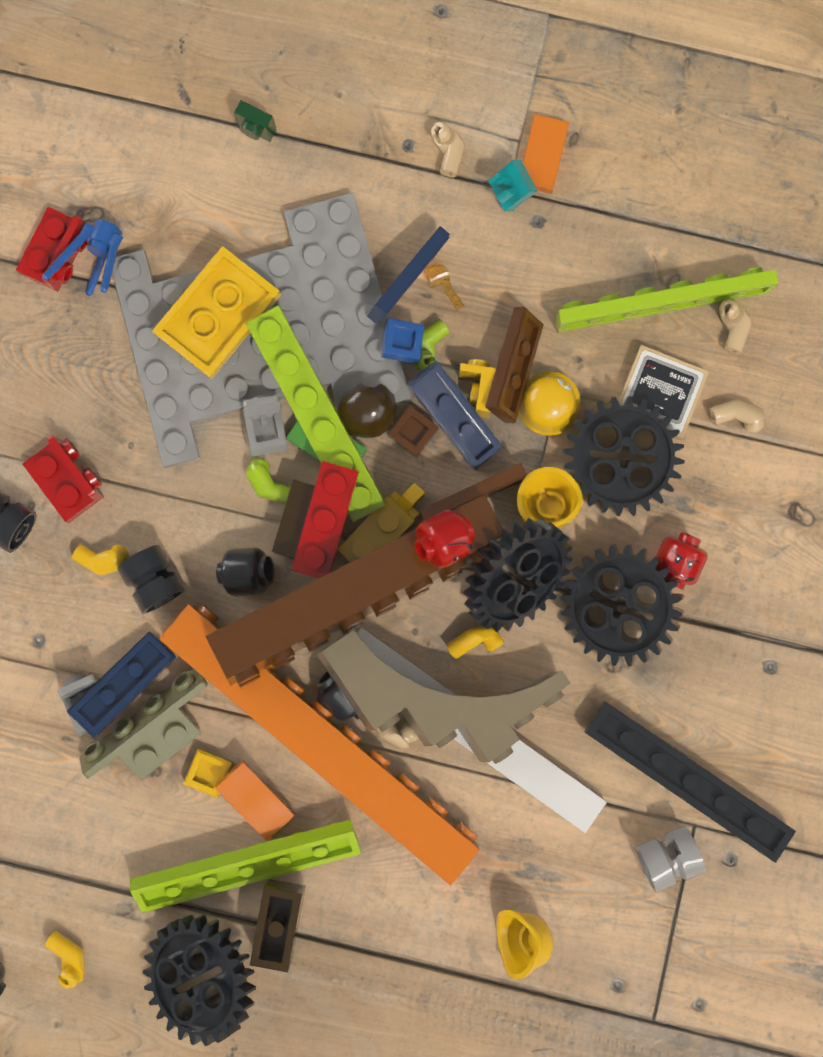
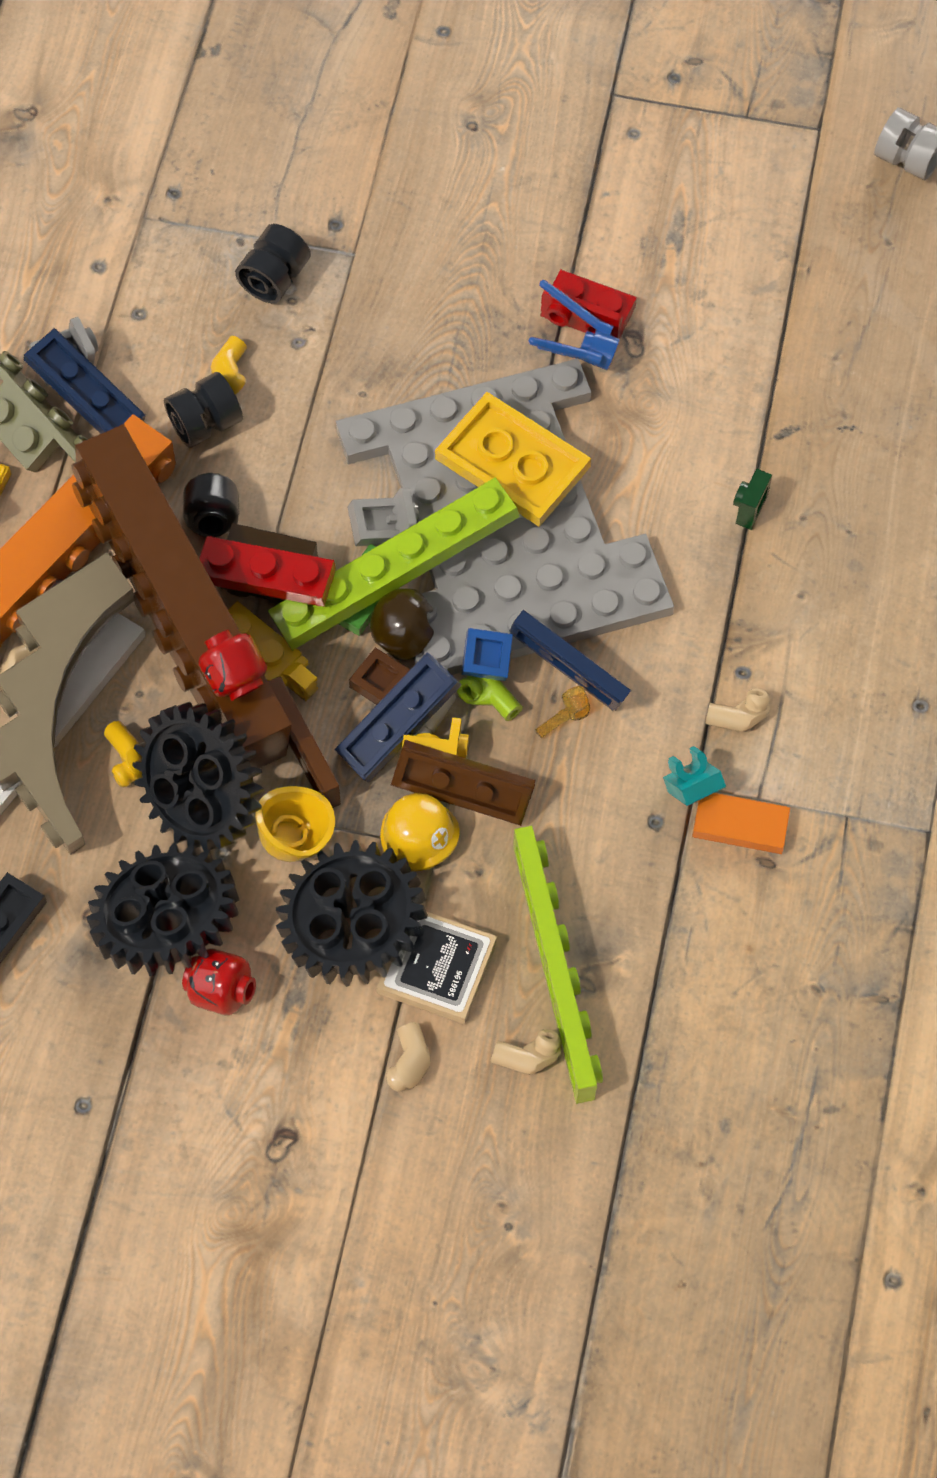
camera: 85 degrees right, 20 degrees down
(64, 479) = (321, 327): red bracket -> none
(262, 483) = (324, 517): lime arm -> none

